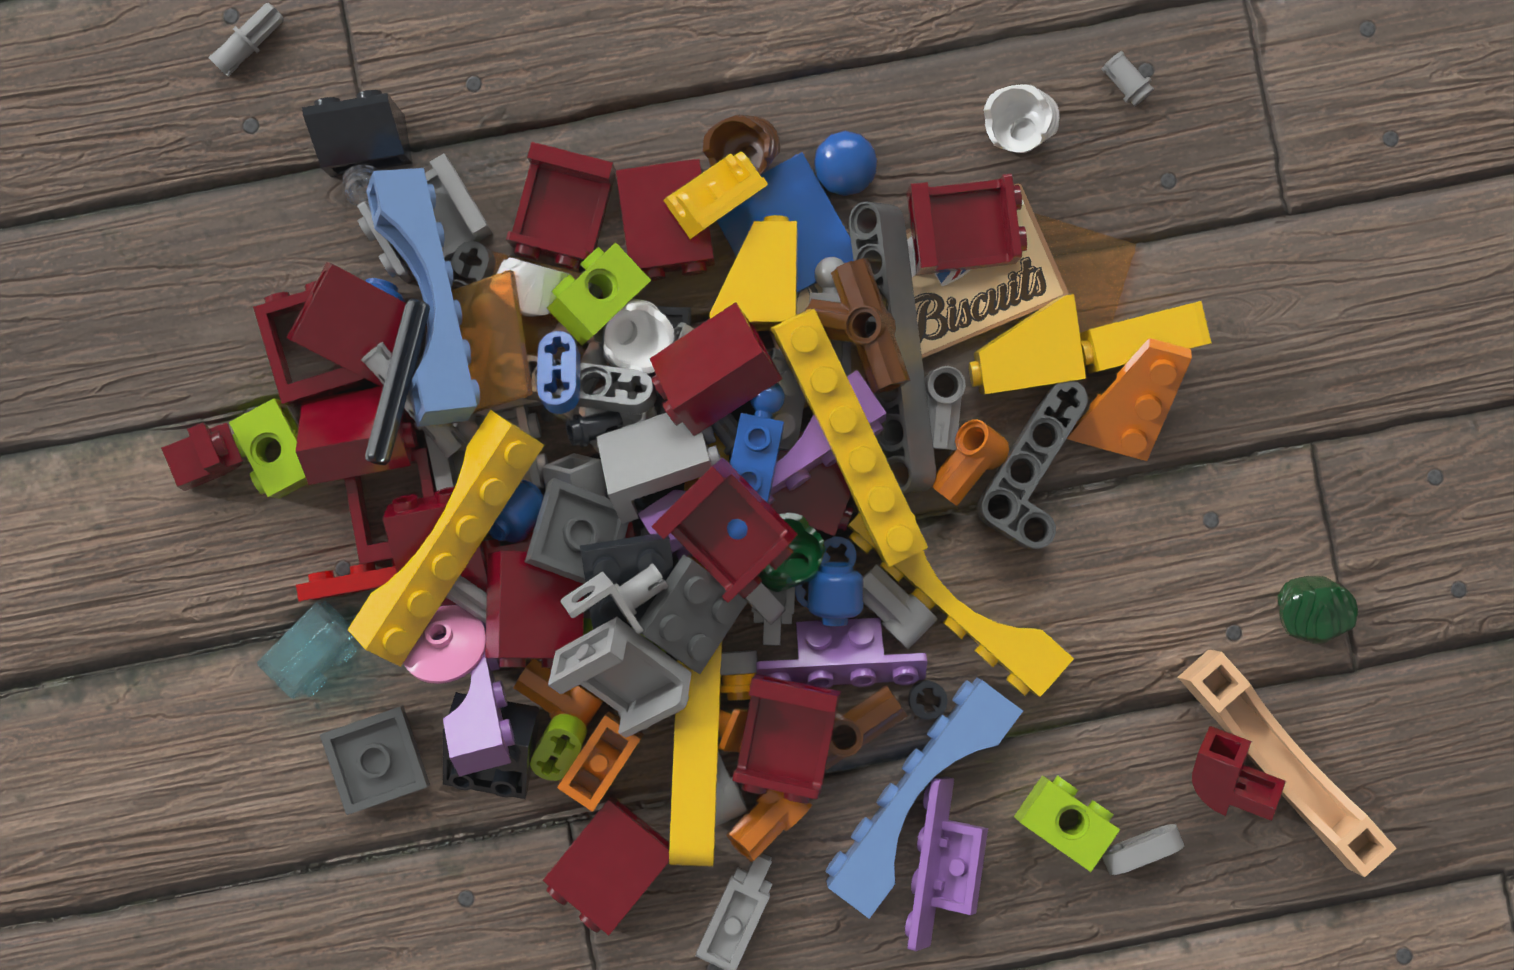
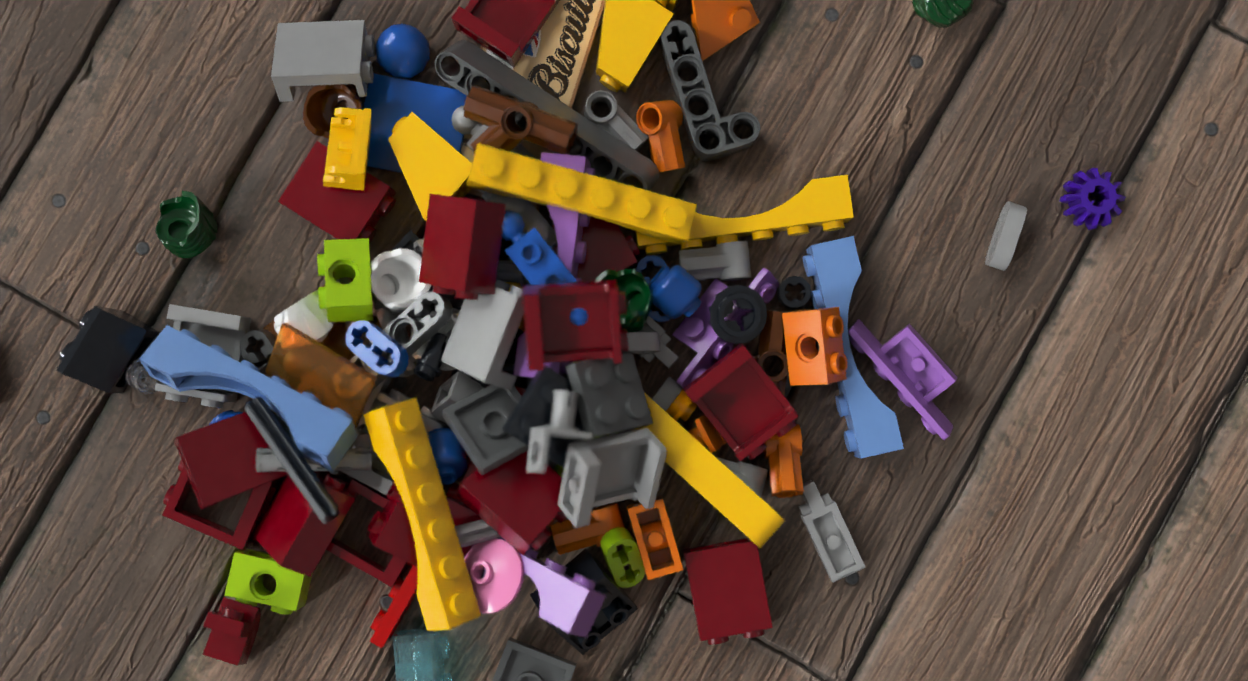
camera: 50 degrees left, 0 degrees up
(525, 107) = (186, 225): none -> dark green hair
(561, 205) = (270, 257): dark red panel -> none
(778, 98) = (322, 56): none -> light grey panel
(866, 685) = (751, 323): none -> black gear
(872, 762) = (804, 361): none -> orange brick
(1083, 842) = (969, 263): lime brick -> none
(1225, 781) = (1005, 145): dark red brick -> none
(1229, 907) = (1105, 196): none -> dark purple gear
(1307, 789) = (983, 99): light nougat arch -> none

